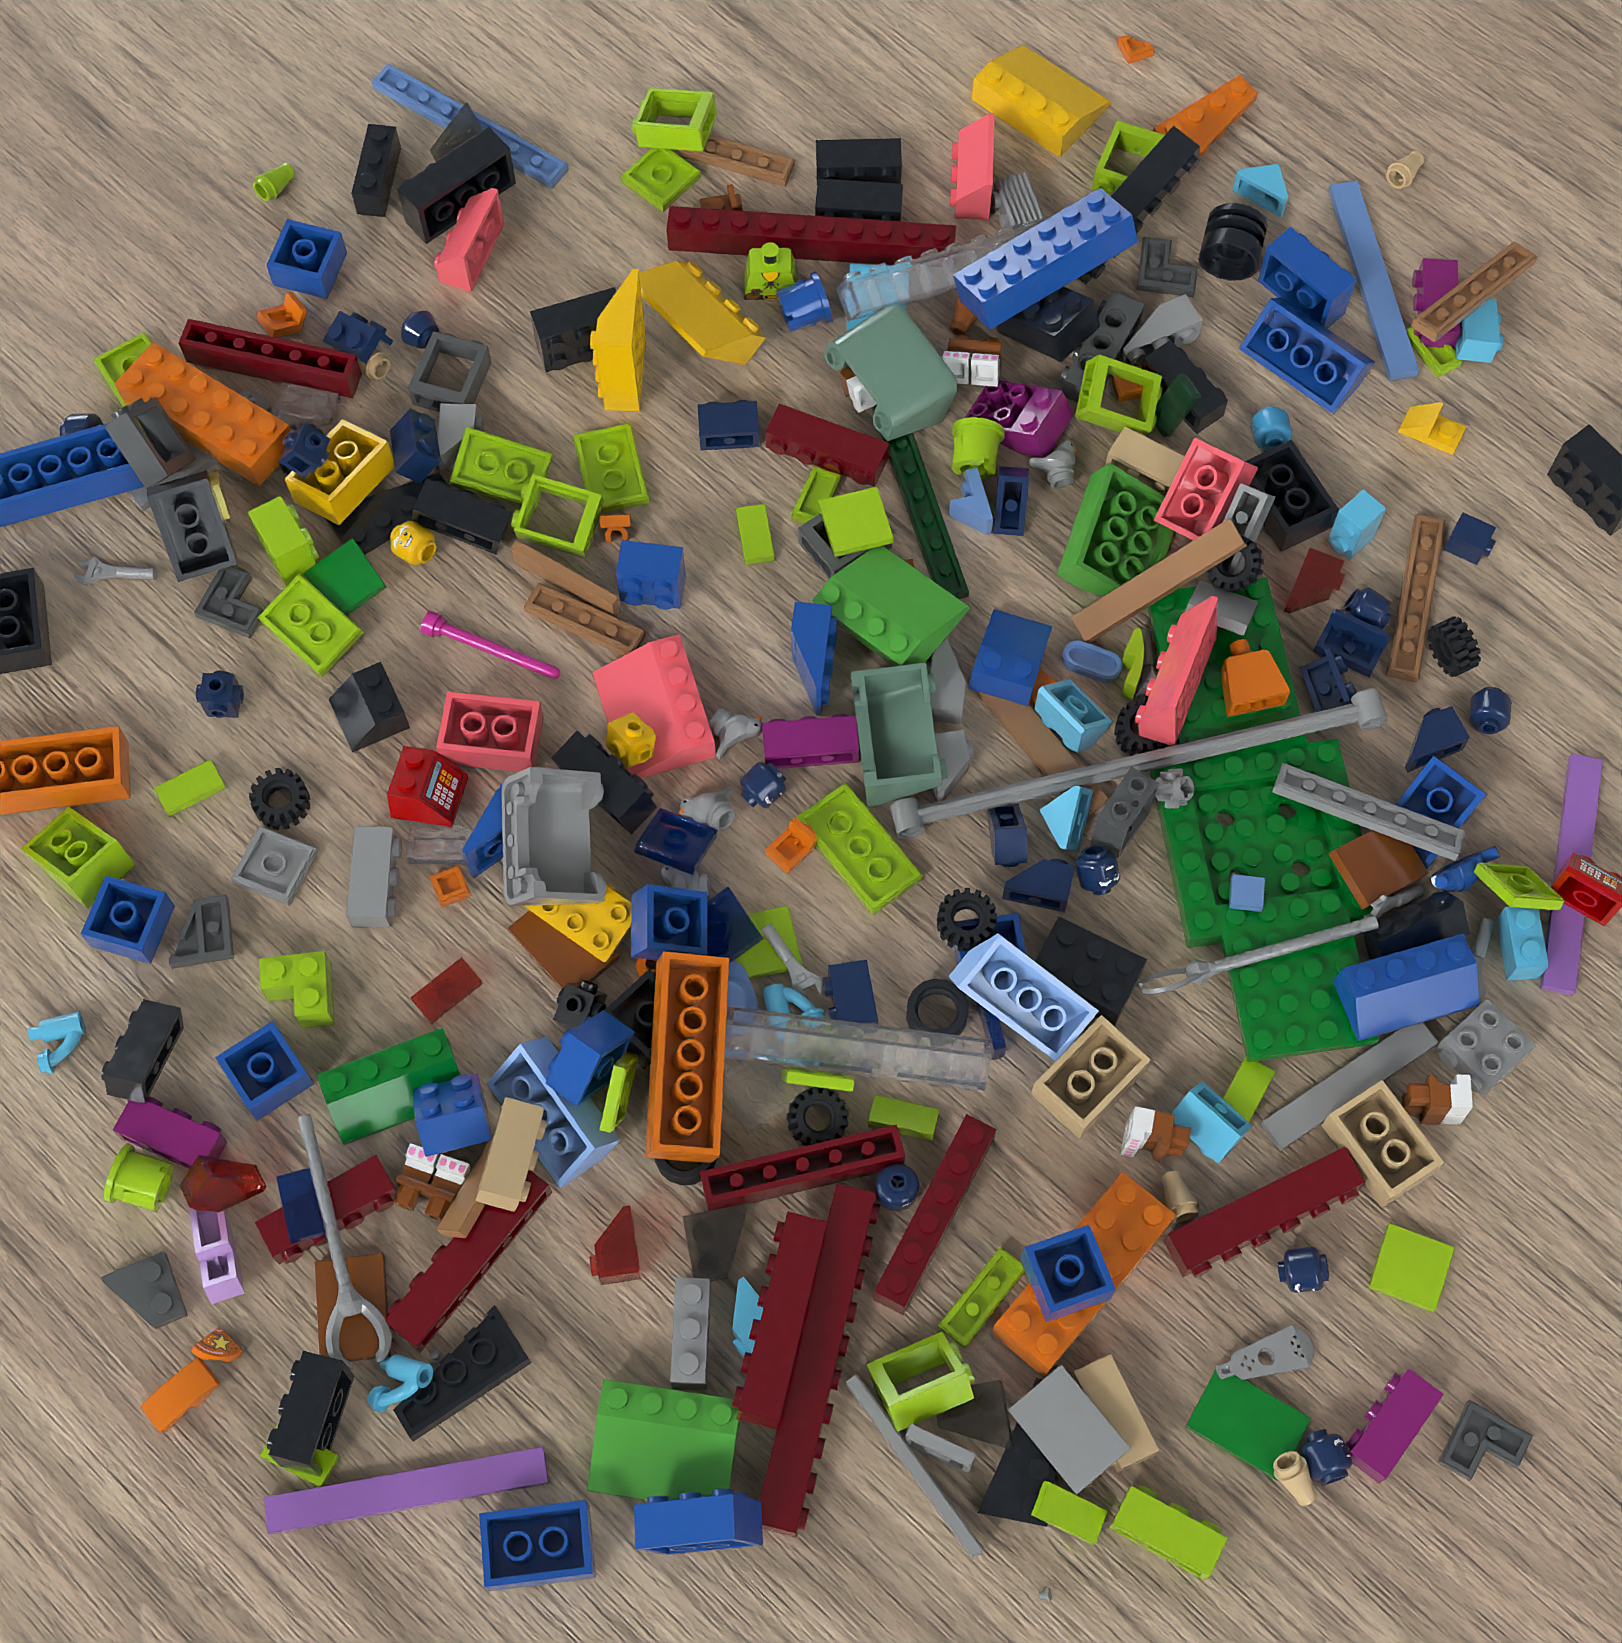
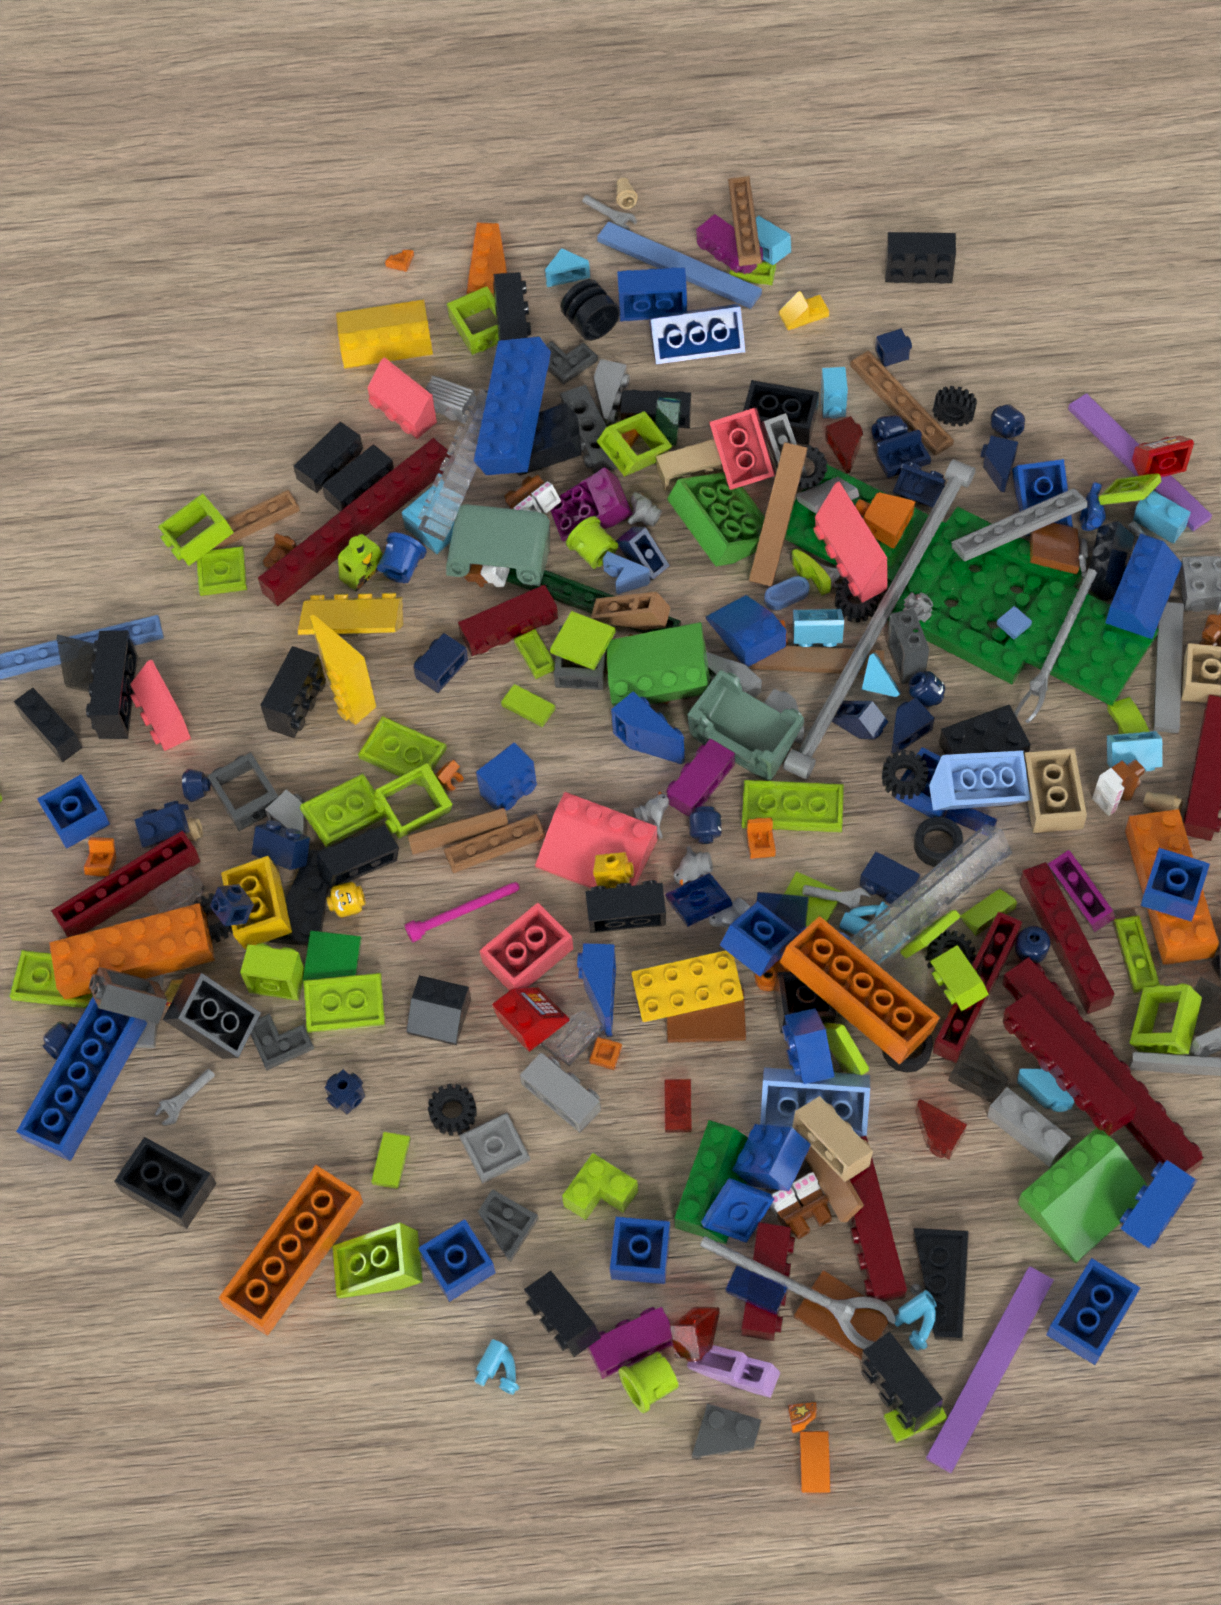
camera: 45 degrees left, 5 degrees down
(368, 1125) = (737, 1210): none -> blue tile
(550, 837) = (645, 962): light grey windscreen -> none
(579, 1001) = (761, 1042): black brick -> none
(781, 1141) = (959, 978): none -> lime brick
(932, 540) = (633, 611): none -> medium nougat slope
(962, 319) = (492, 483): dark orange cone -> none
(998, 1189) = (1081, 891): none -> magenta brick
(1271, 427) = (727, 387): dark azure head -> none
(1373, 186) = (617, 217): none -> light grey piece

